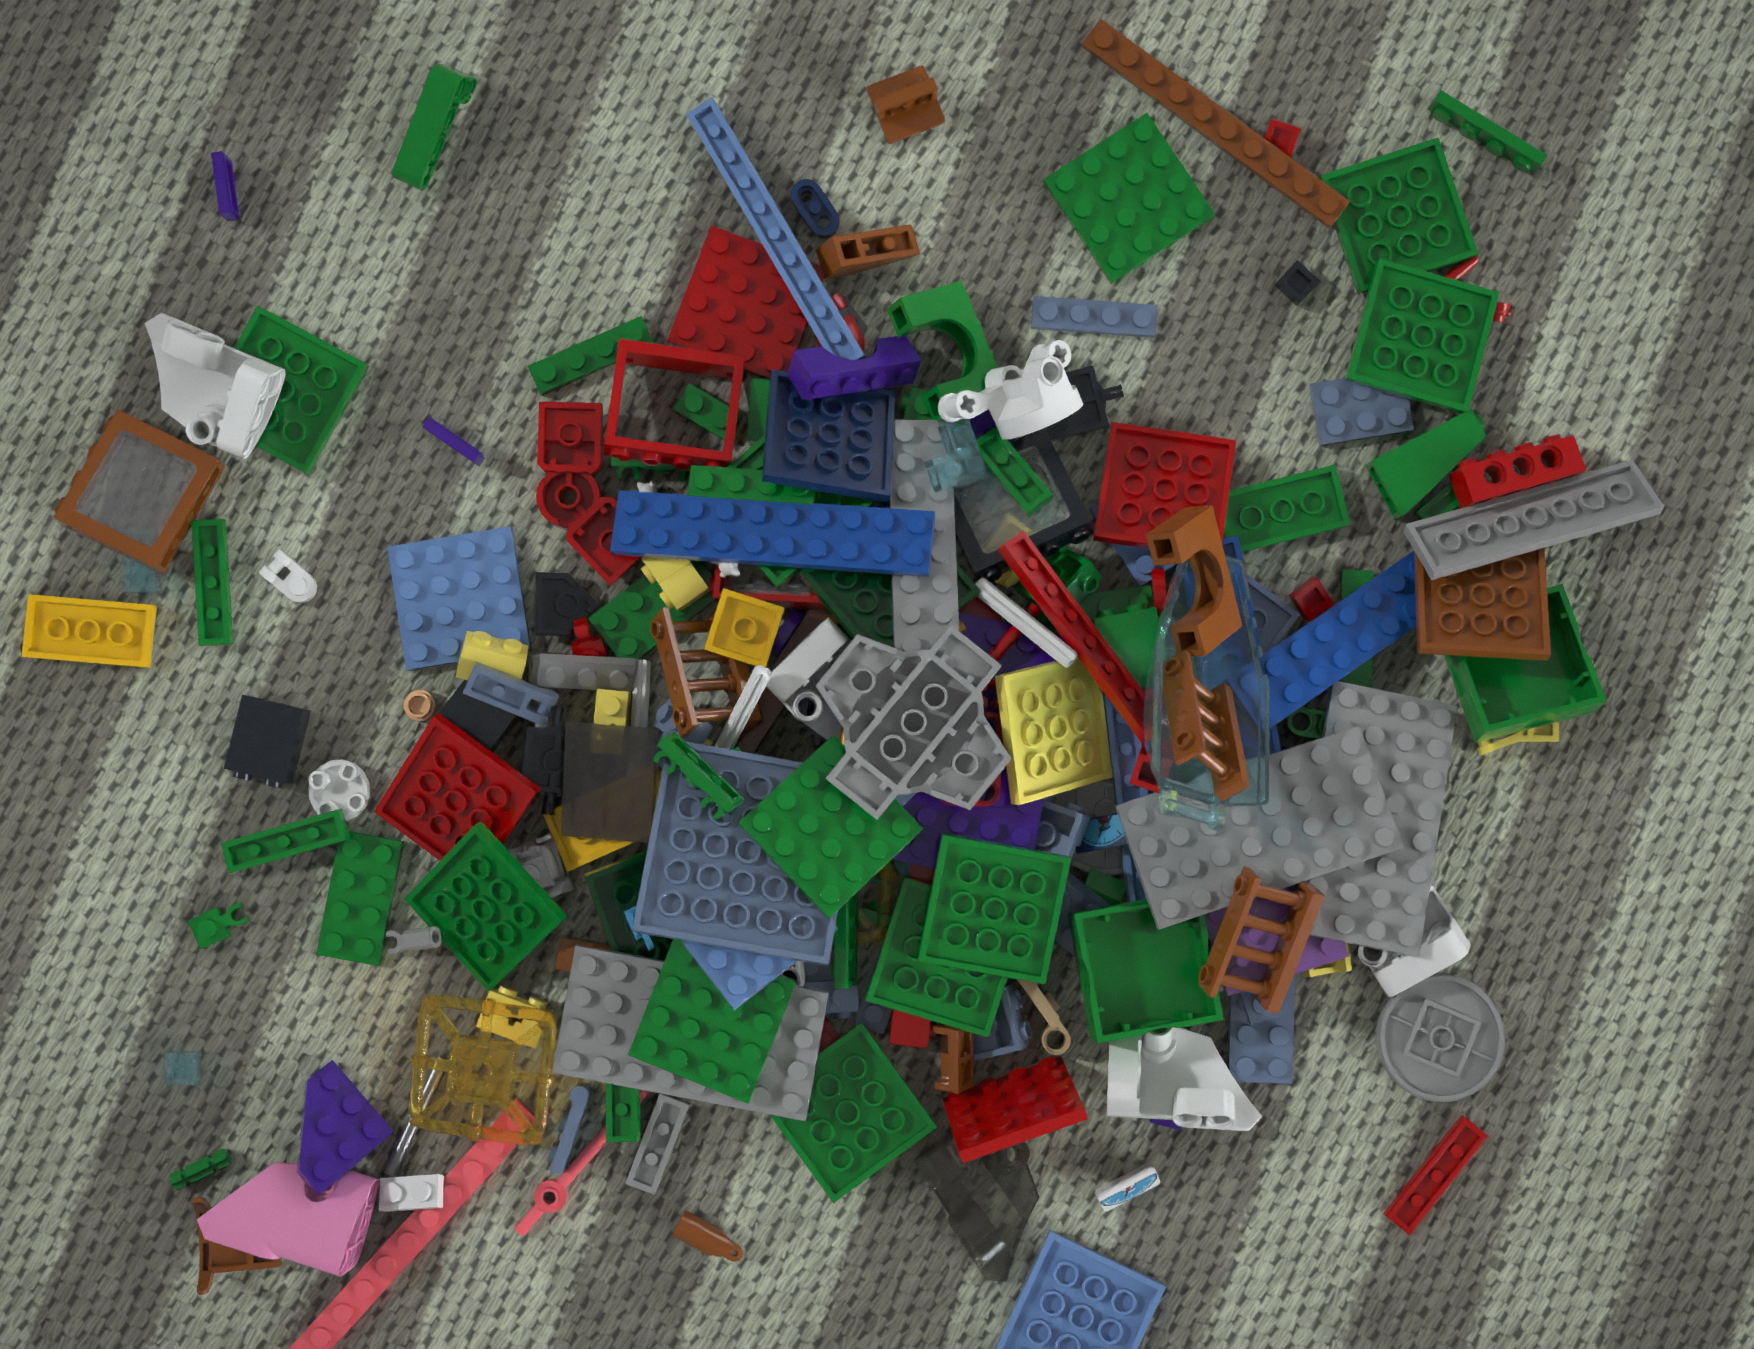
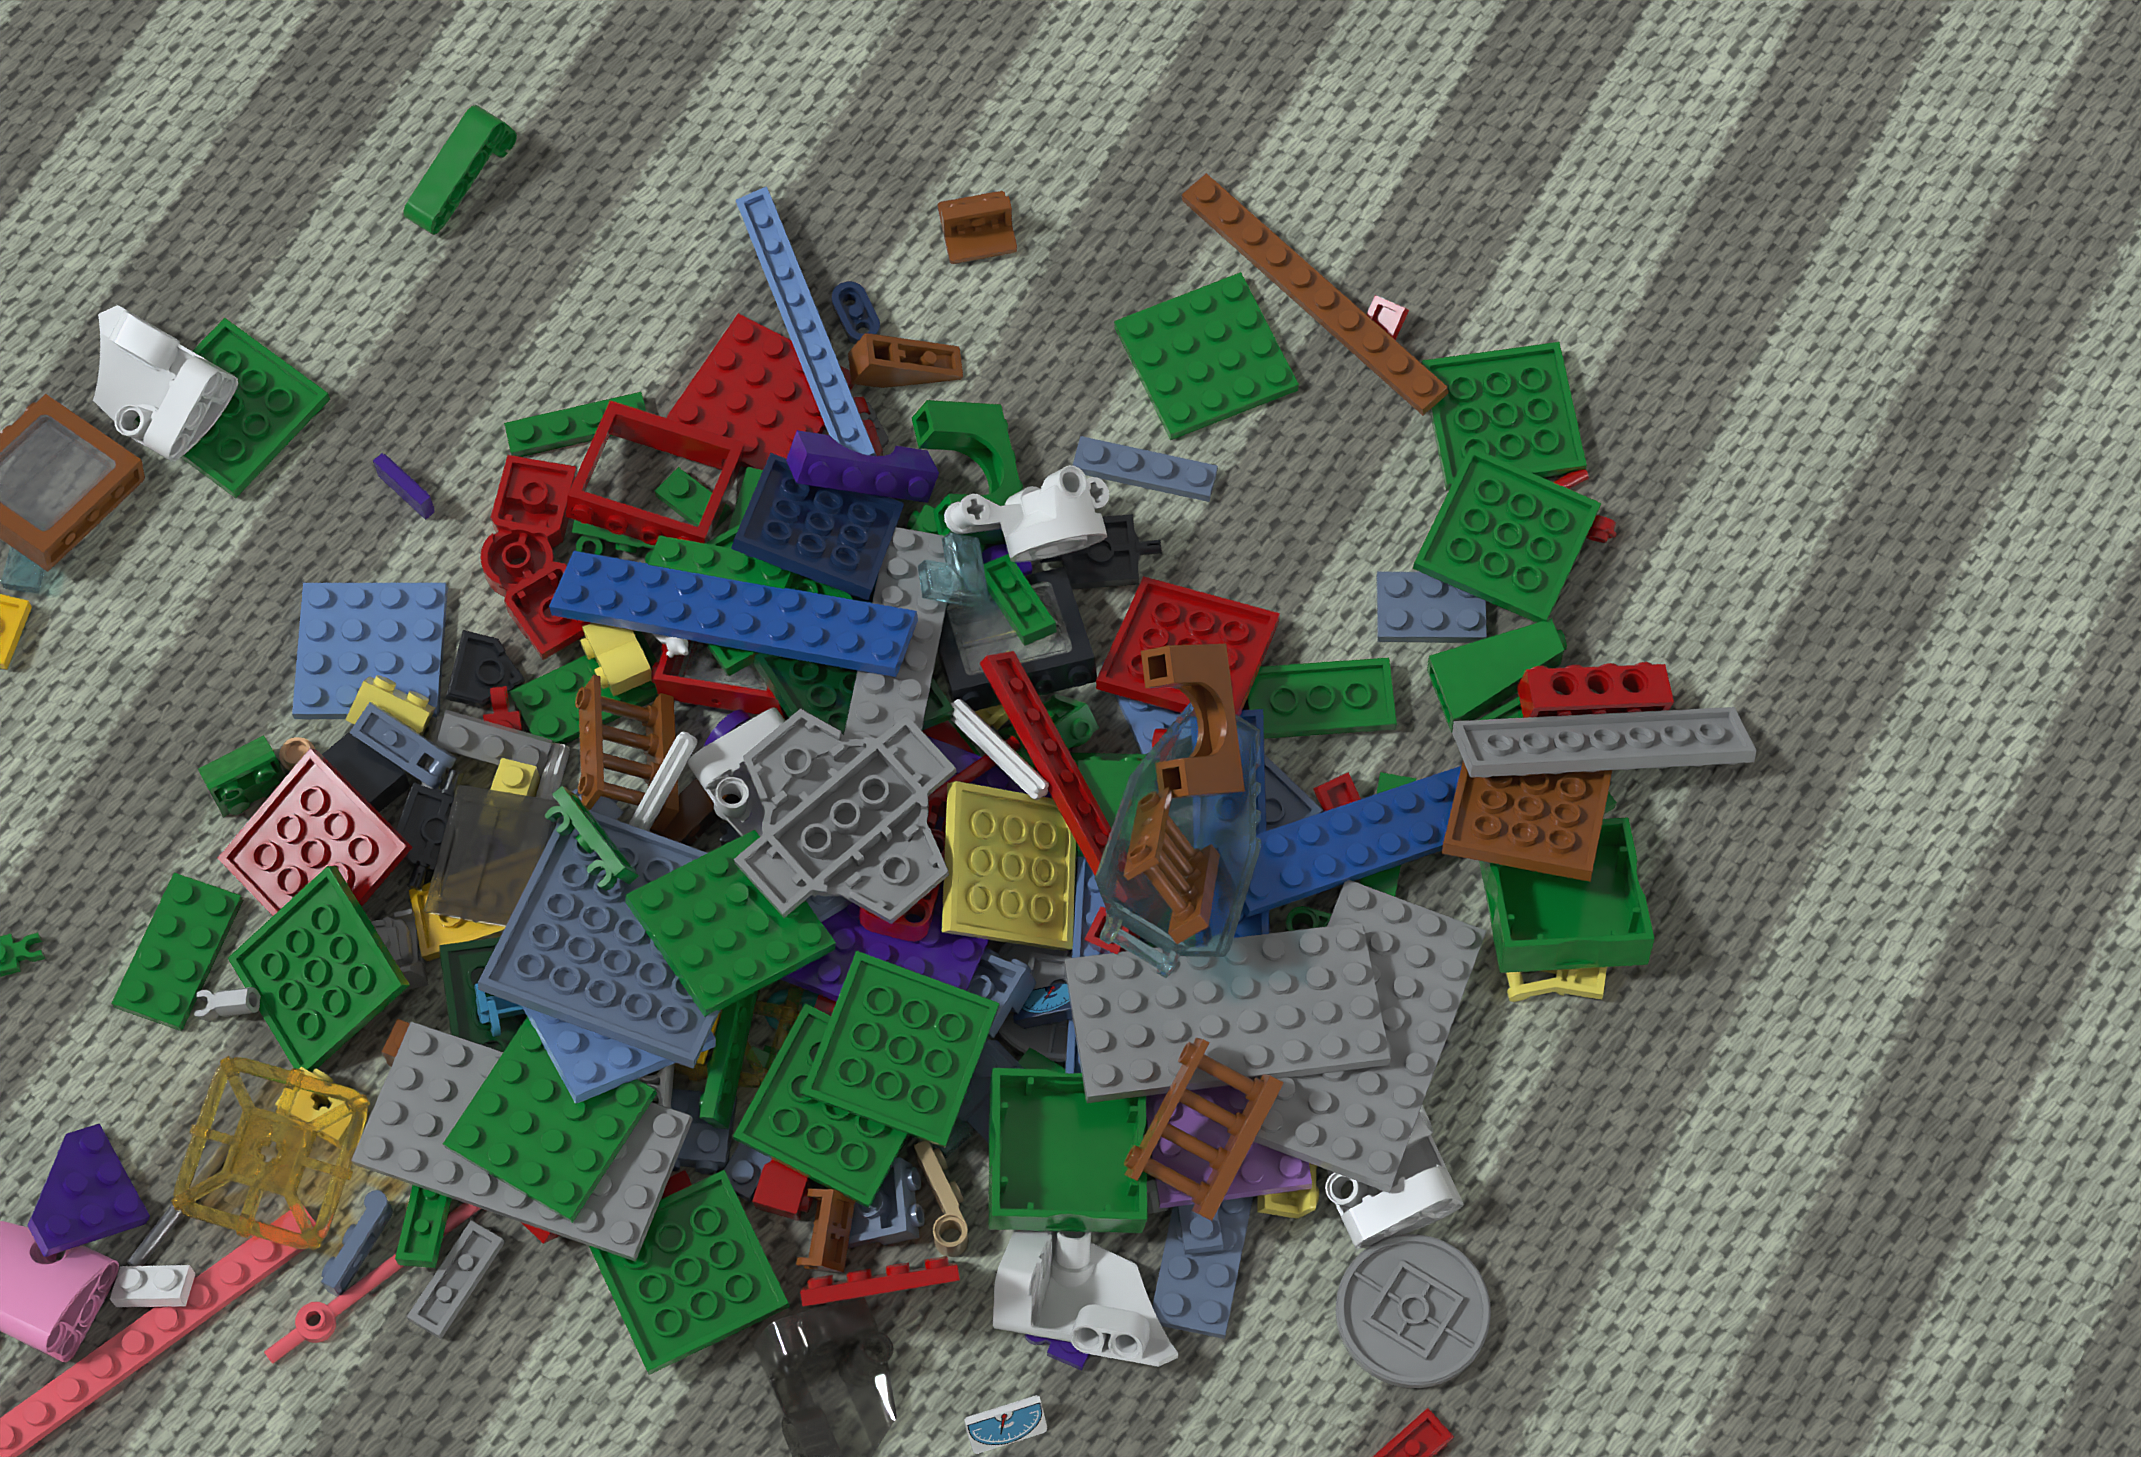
camera: 10 degrees right, 20 degrees down
(212, 582) = (99, 590): green plate -> none
(225, 186) = (221, 197): dark purple tile -> none
(267, 741) = (117, 762): black brick -> none
(285, 840) = (109, 871): green plate -> none
(298, 585) = (192, 610): white plate -> none
(339, 786) = (183, 830): white dish -> none
(378, 736) = (243, 776): none -> green slope
(705, 1237) = (488, 1398): dark orange piece -> none
(744, 628) = (679, 705): yellow plate -> none
(1297, 283) = (1378, 466): black plate -> none
(1496, 138) = (1623, 352): green plate -> none

